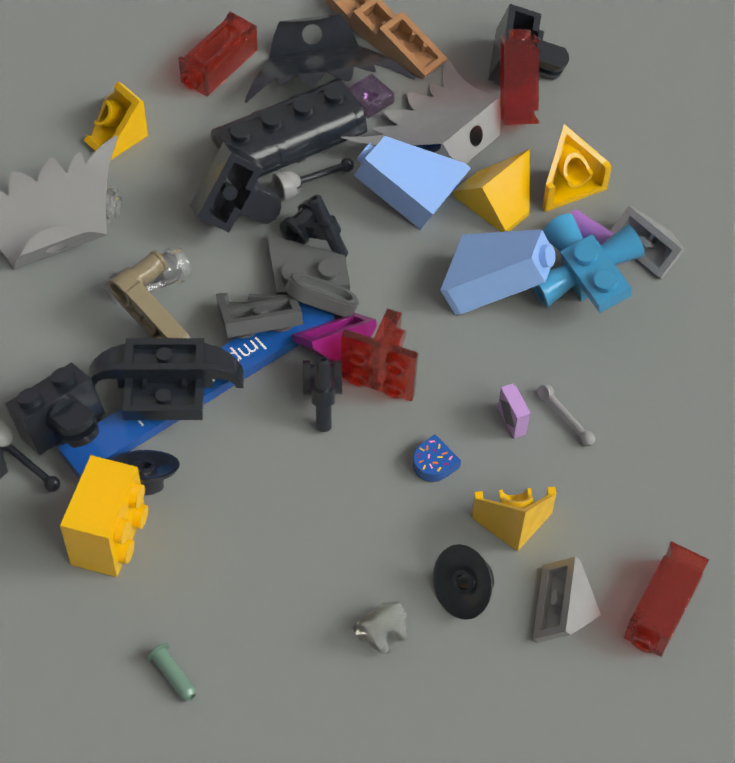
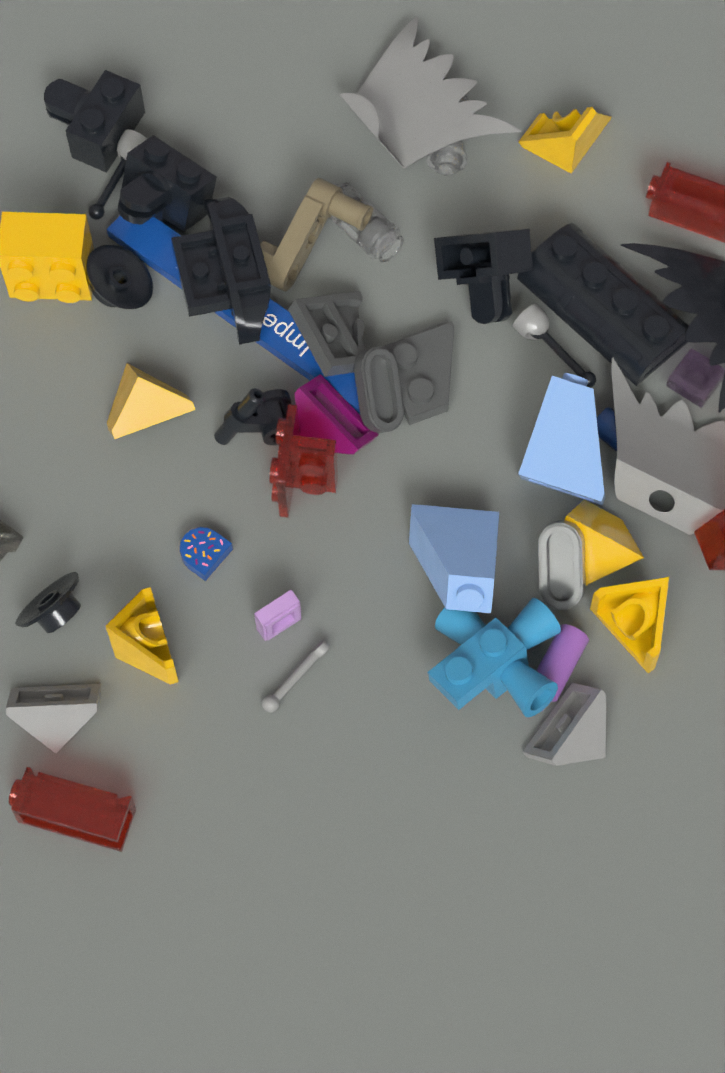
camera: 80 degrees right, 10 degrees up
(278, 478) = (144, 402): none -> yellow slope
(314, 222) = (472, 358): black piece -> none
(514, 207) = (562, 564): none -> tile

